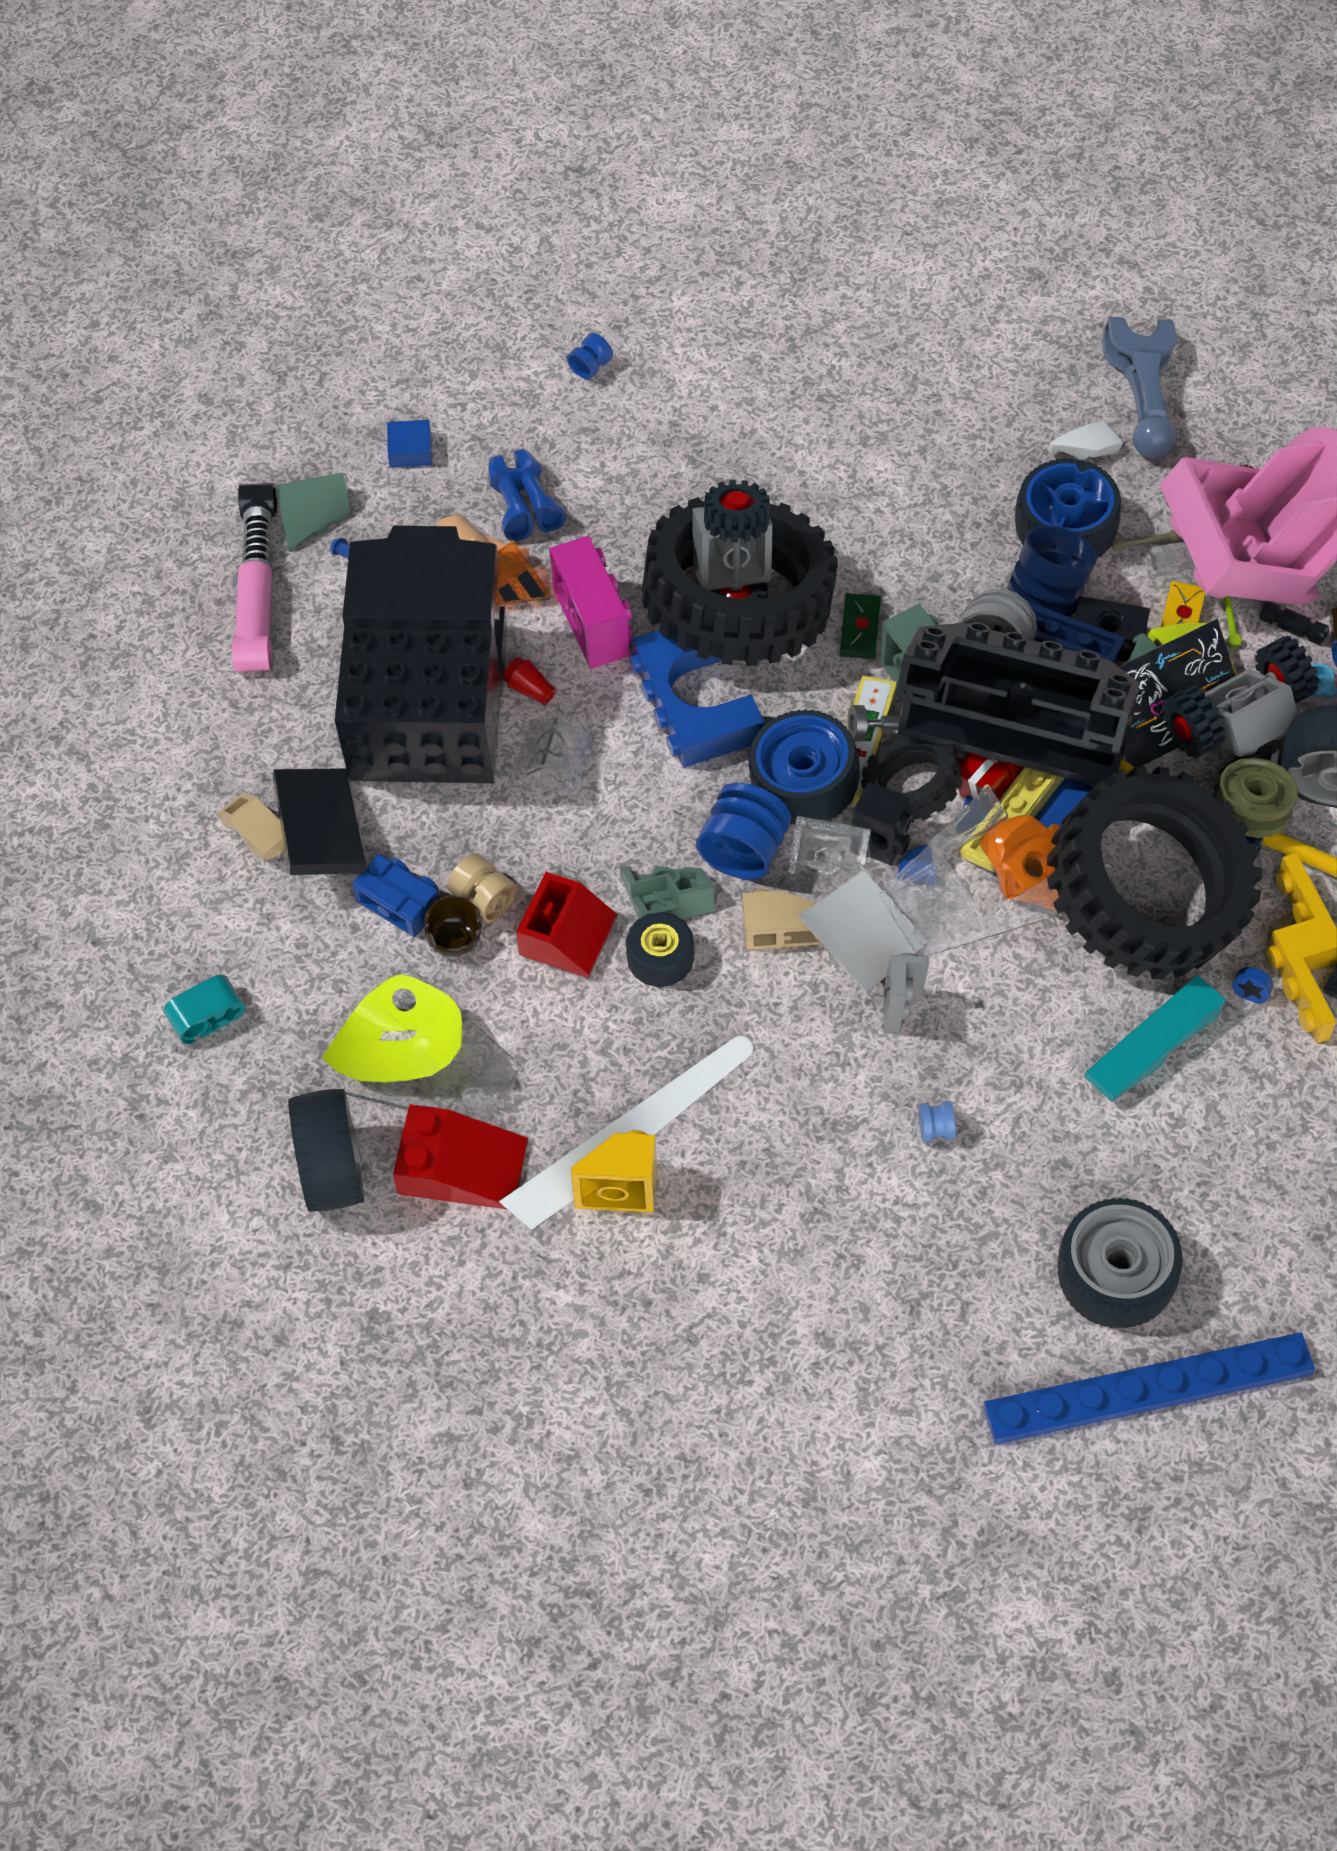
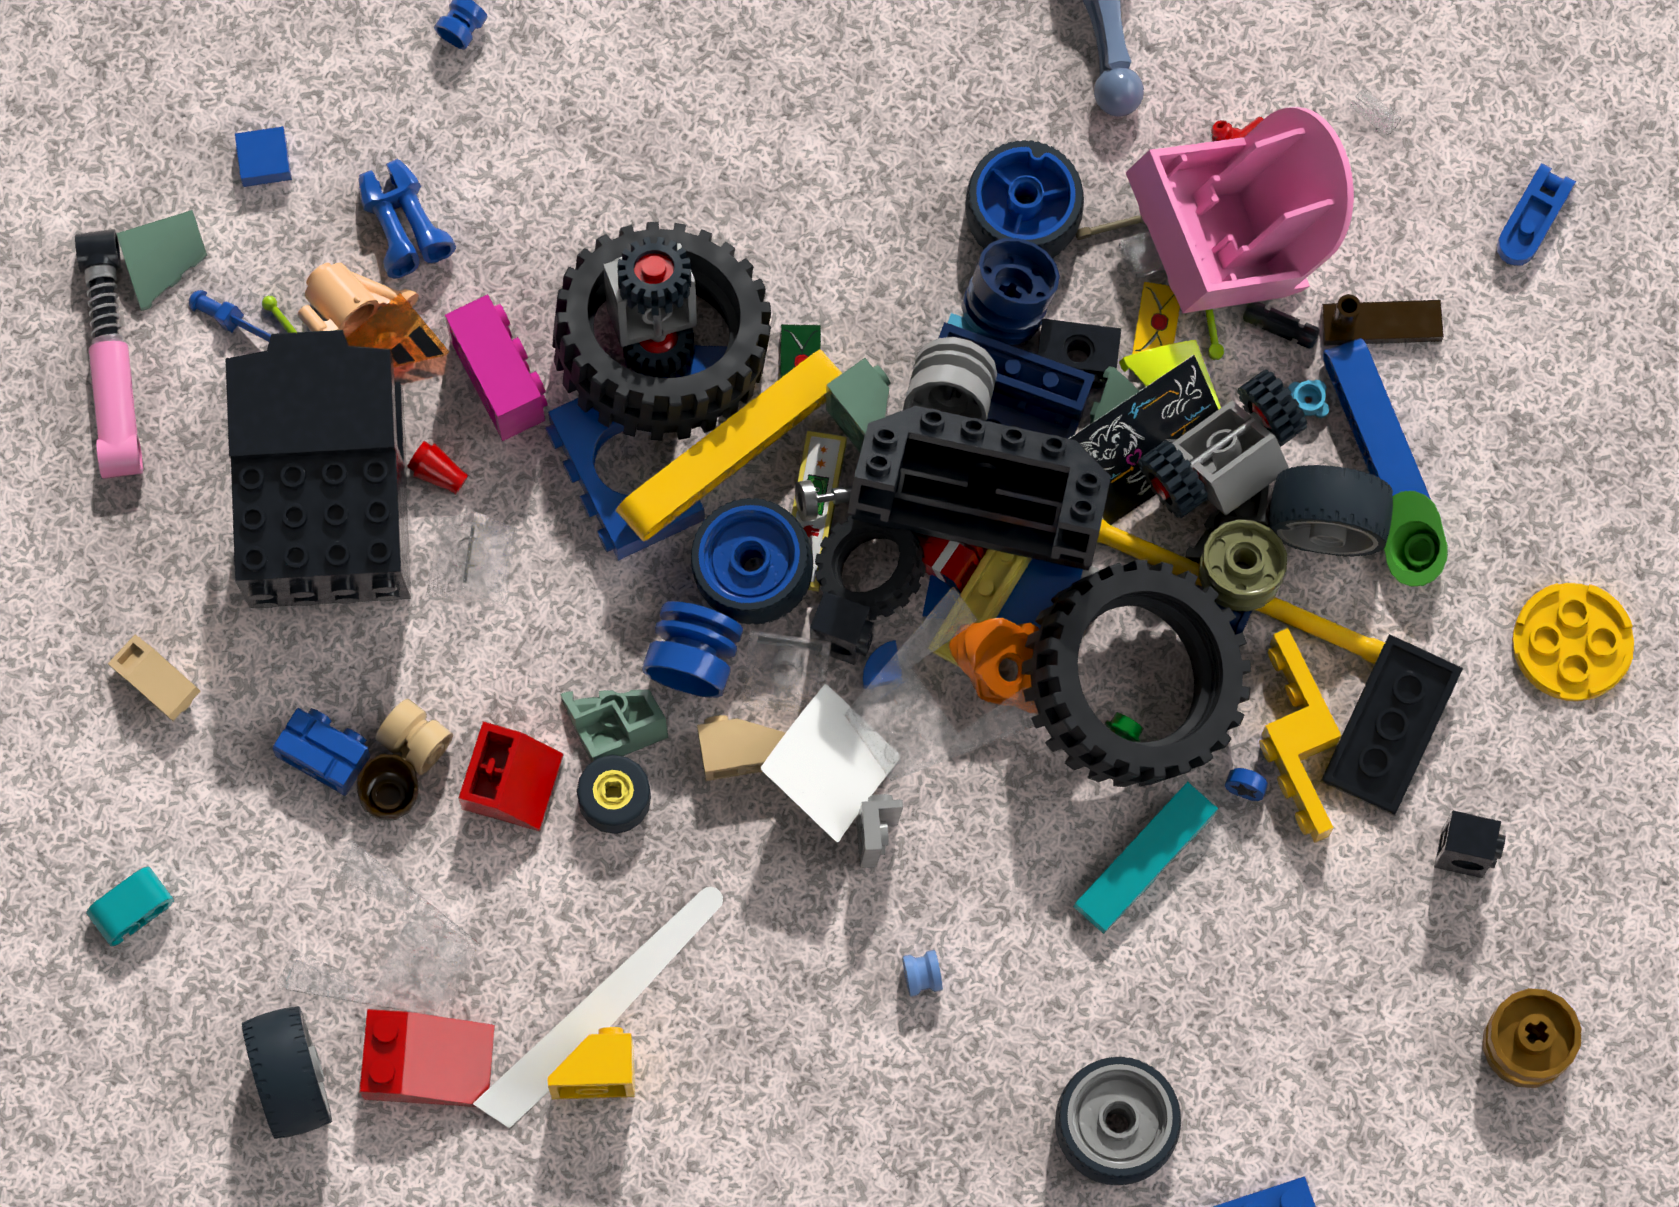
camera: 10 degrees left, 15 degrees up
(318, 821) = (225, 672): black tile -> none
(438, 1035) = (349, 948): neon yellow piece -> none
(787, 674) = (728, 447): none -> yellow beam
(1089, 440) = (1043, 99): white slope -> none

